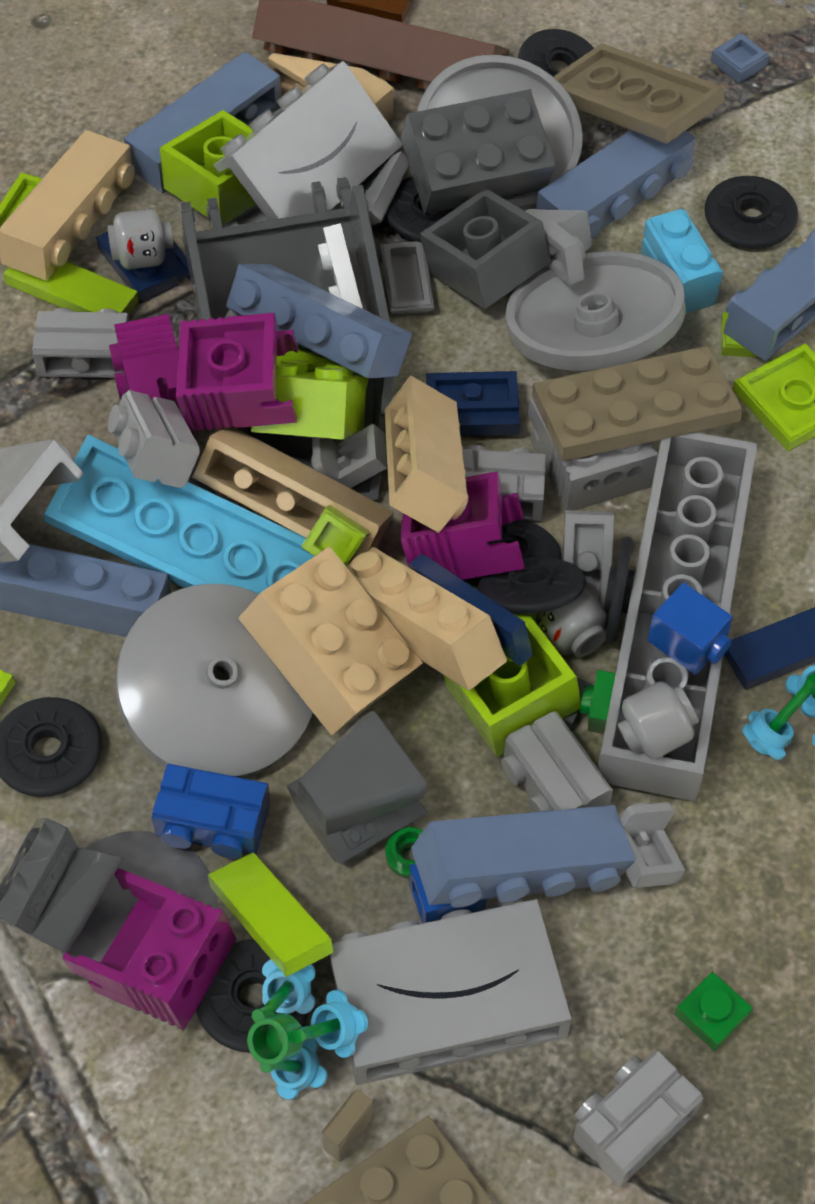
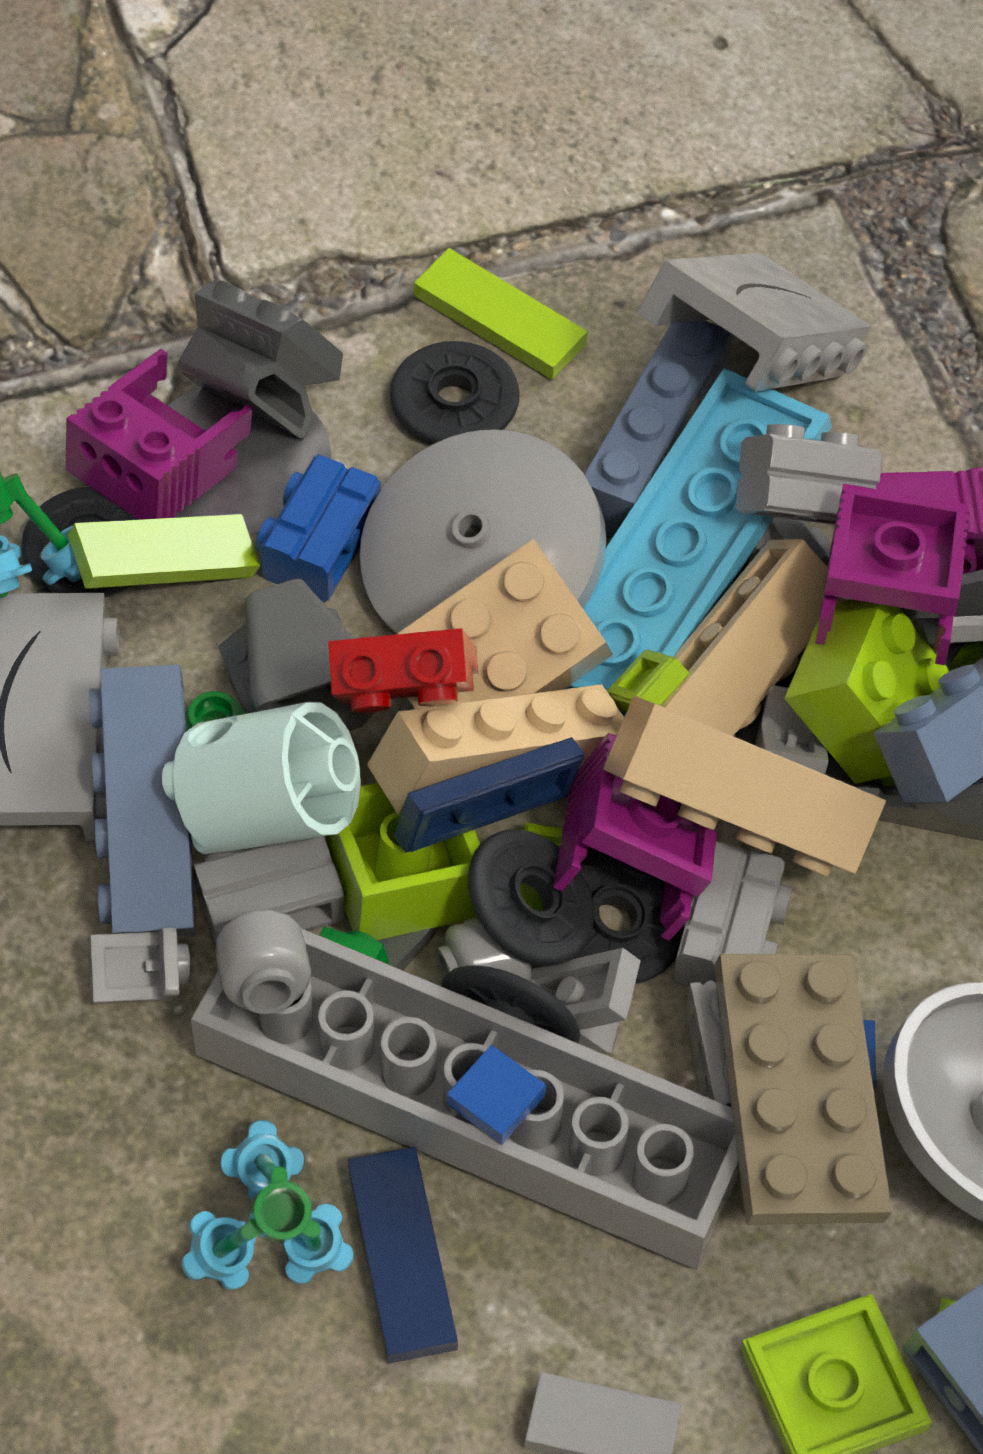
camera: 100 degrees right, 0 degrees up
(404, 653) = (400, 666): none -> red plate
(484, 400) = (884, 923): dark blue plate -> none
(506, 748) = (265, 778): none -> light aqua cylinder
(690, 629) = (389, 1037): blue brick -> none
(703, 566) = (496, 1094): none -> blue tile

